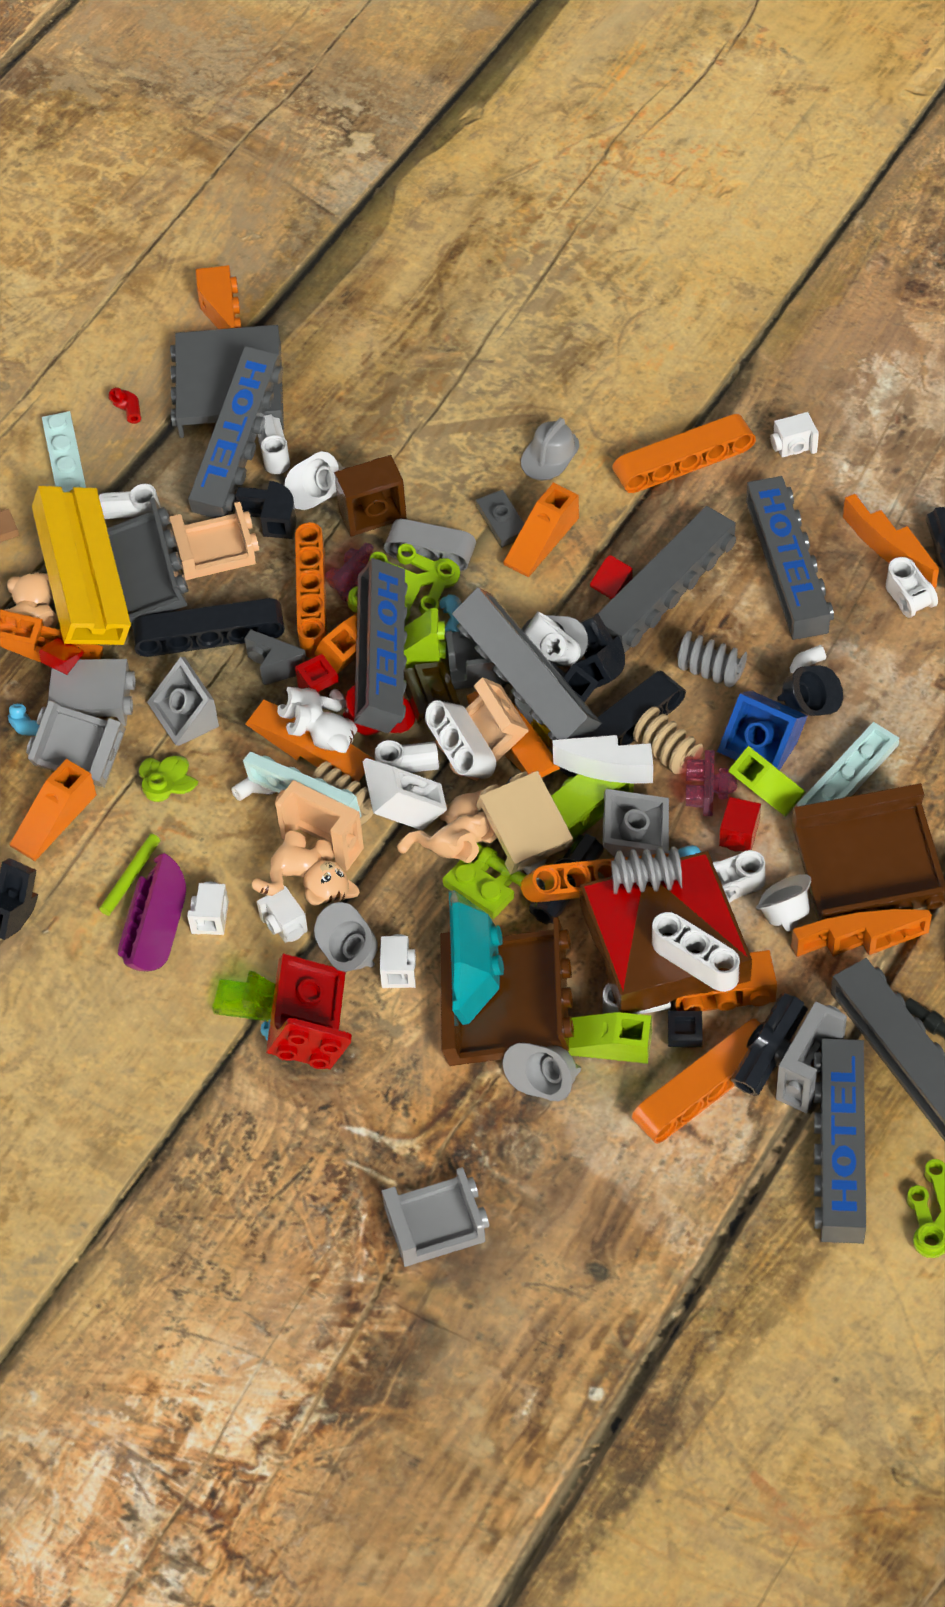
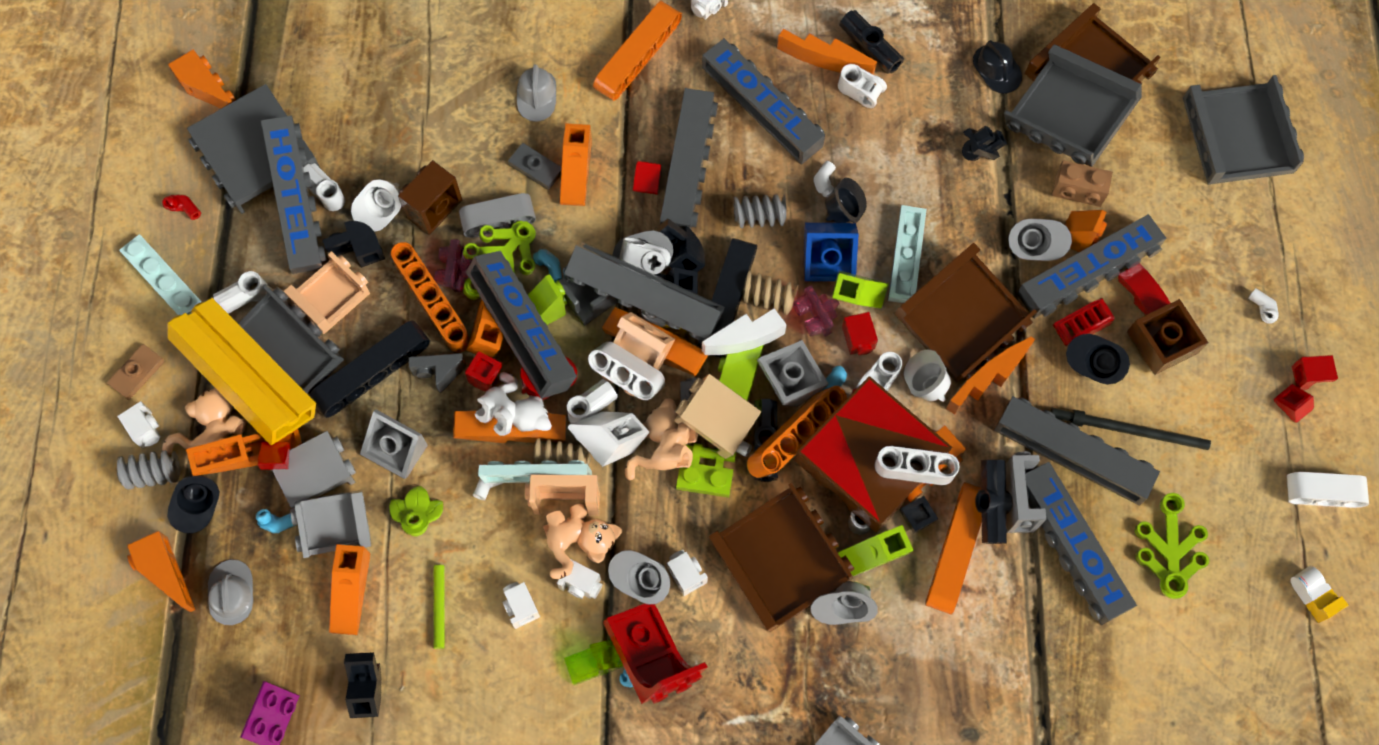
camera: 35 degrees left, 15 degrees up
(153, 916) = (482, 636): magenta brick -> none
(427, 684) = (574, 337): dark brown plate -> none
(473, 957) = (744, 542): teal wedge -> none
(646, 869) = (842, 417): light grey piece -> none

